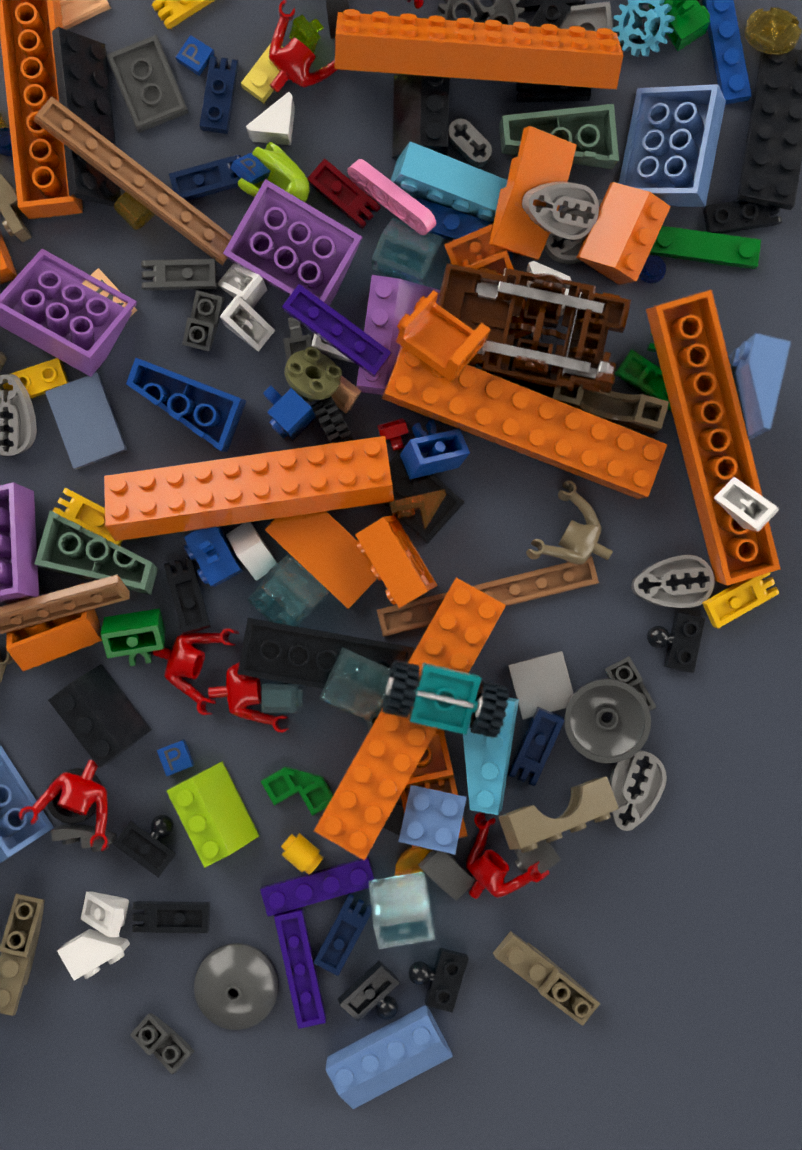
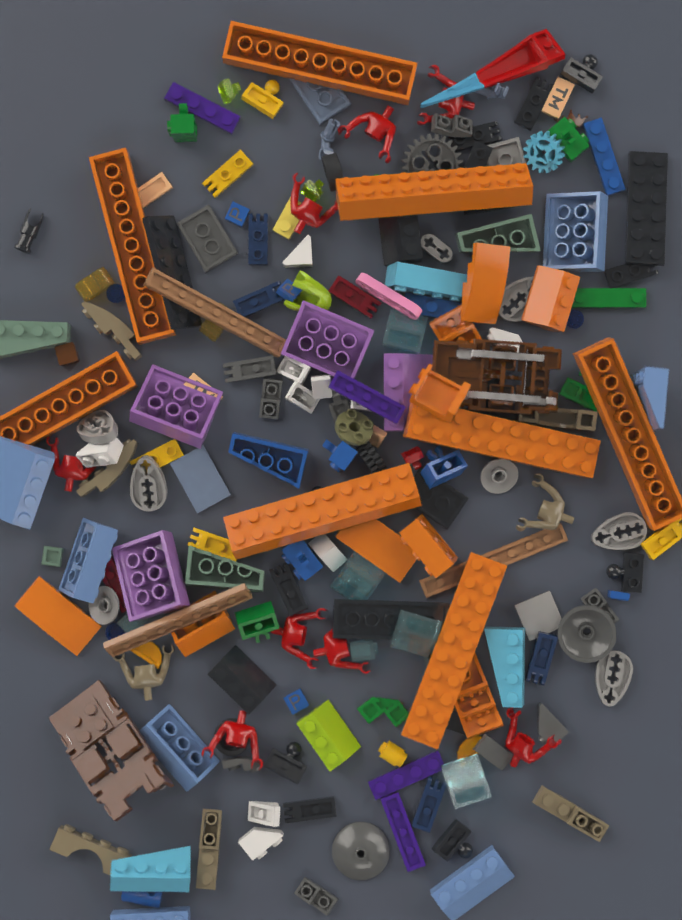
camera: 10 degrees left, 0 degrees up
(271, 309) = (320, 386): none -> white slope
(426, 503) = (444, 505): clear orange slope -> none
(432, 819) = (478, 717): medium blue plate -> none
(444, 979) = (501, 825): black plate -> none
(445, 699) = (476, 634): plate -> none
(514, 487) = (502, 482): none -> light grey dish
(568, 195) = (507, 300): light grey piece -> none
(587, 802) = (581, 690): dark tan arch -> none
(660, 672) = (618, 595): none -> blue tile
(745, 505) = (657, 476): white slope -> none
(772, 31) = (633, 142): clear yellow tile -> none

